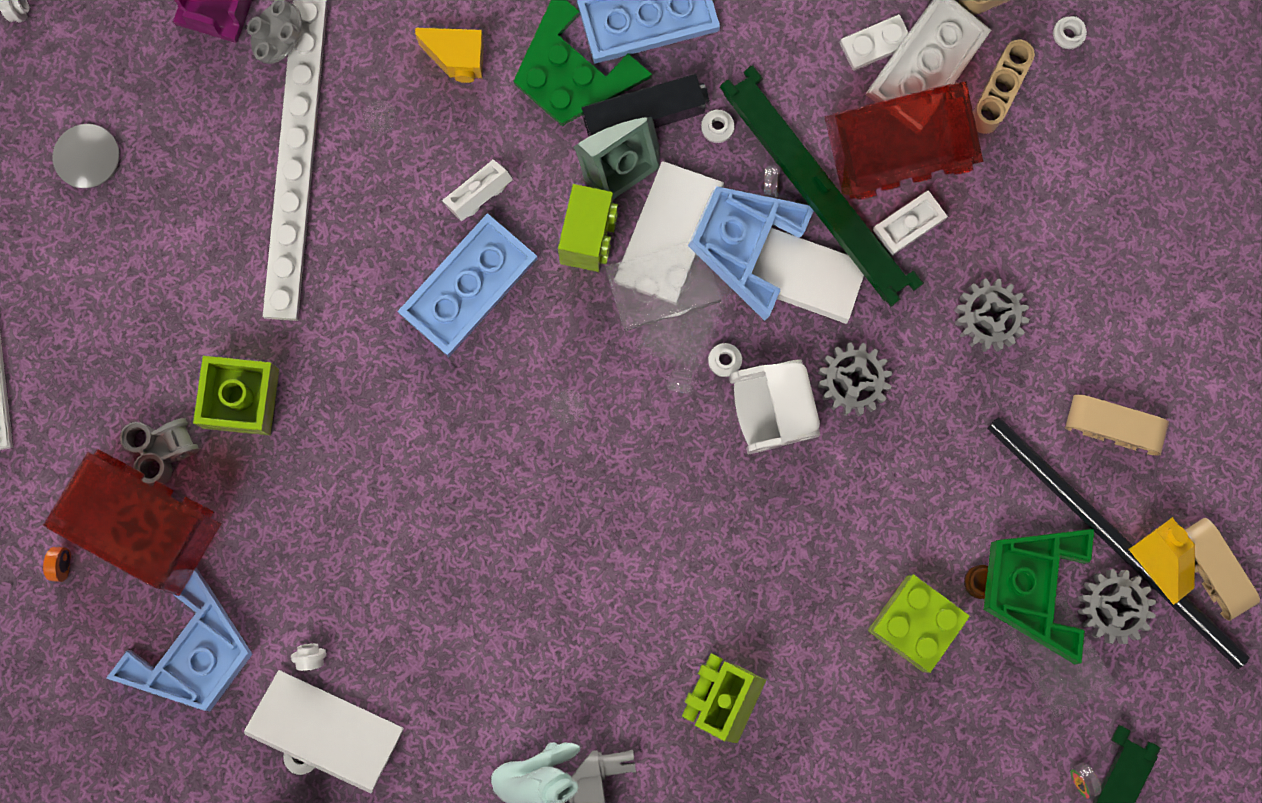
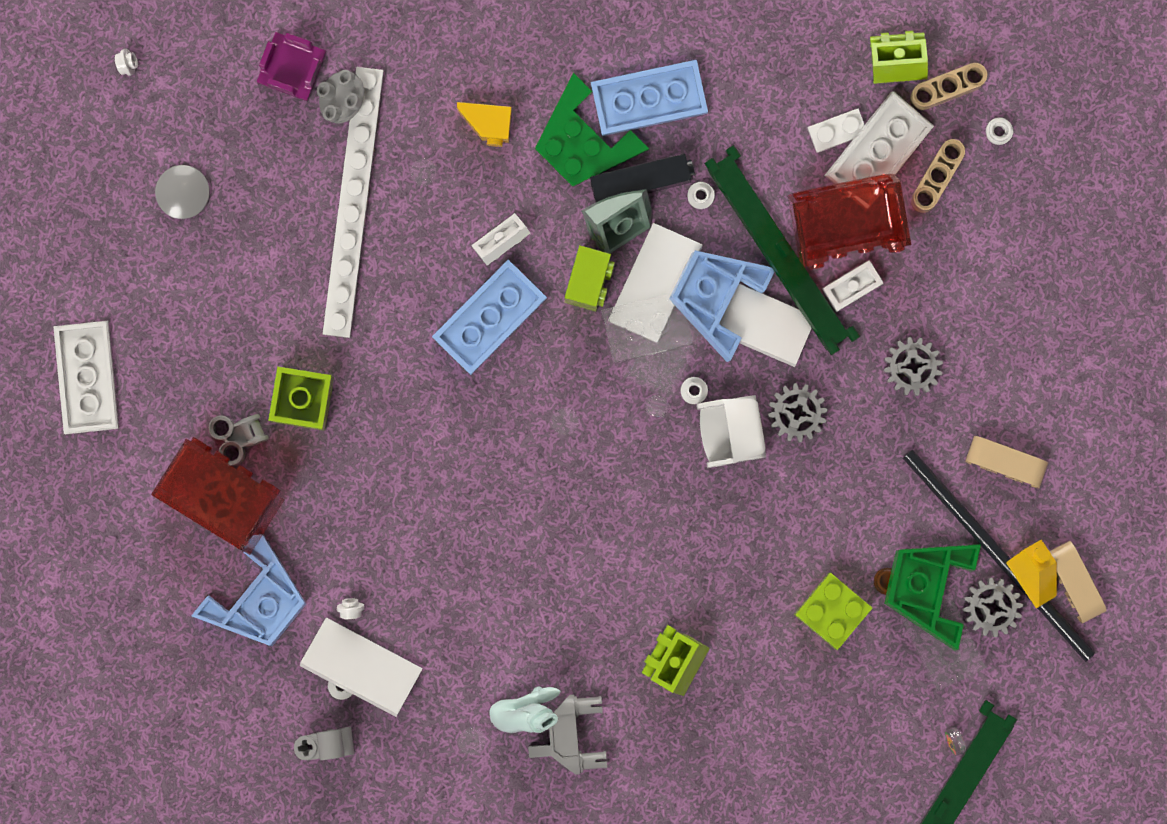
camera: 10 degrees right, 5 degrees up
(56, 564) = (154, 524): orange tile -> none
(771, 181) = (741, 245): clear tile -> none

